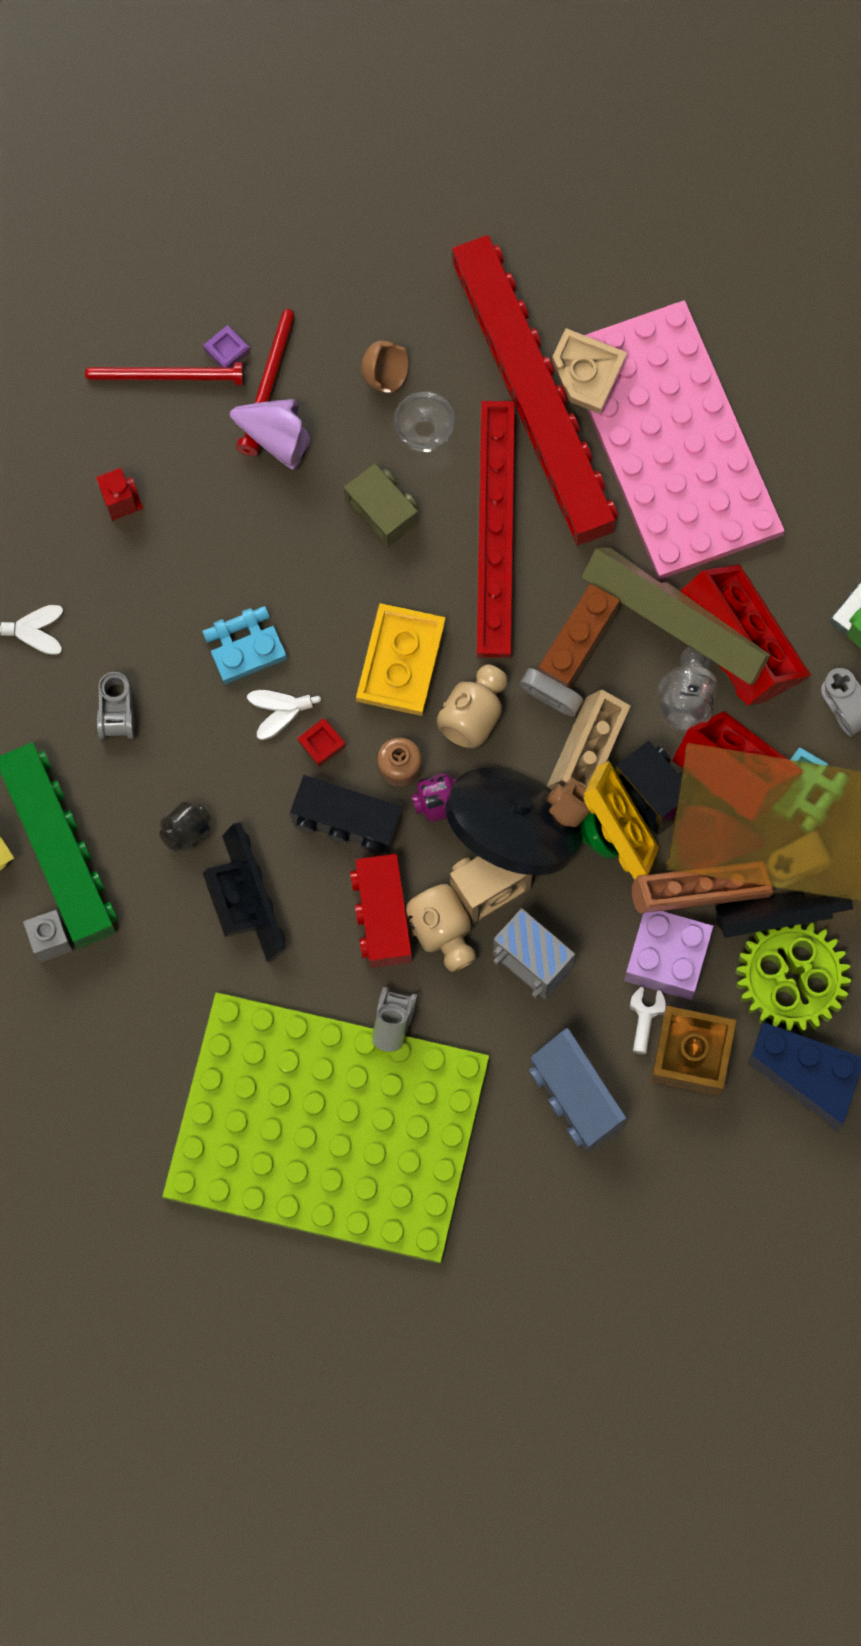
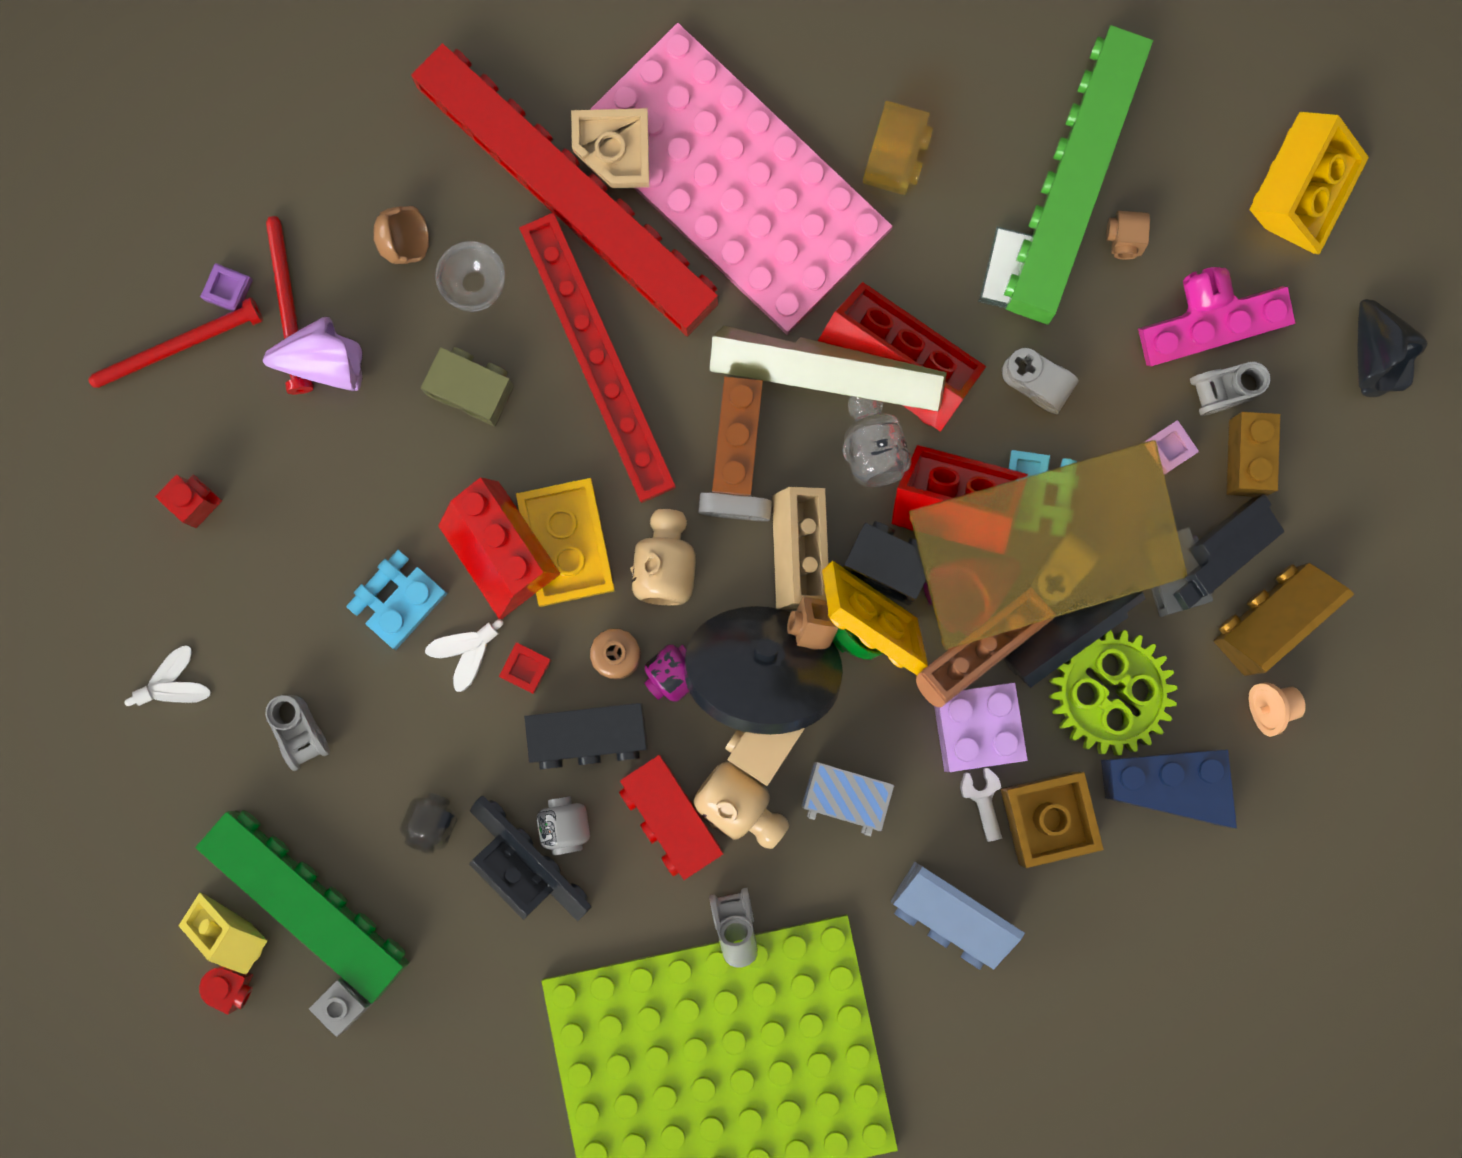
camera: 25 degrees left, 10 degrees up
(292, 878) = (563, 826): none -> light grey head
(344, 635) = (496, 546): none -> red slope
(816, 471) = (896, 147): none -> clear yellow brick

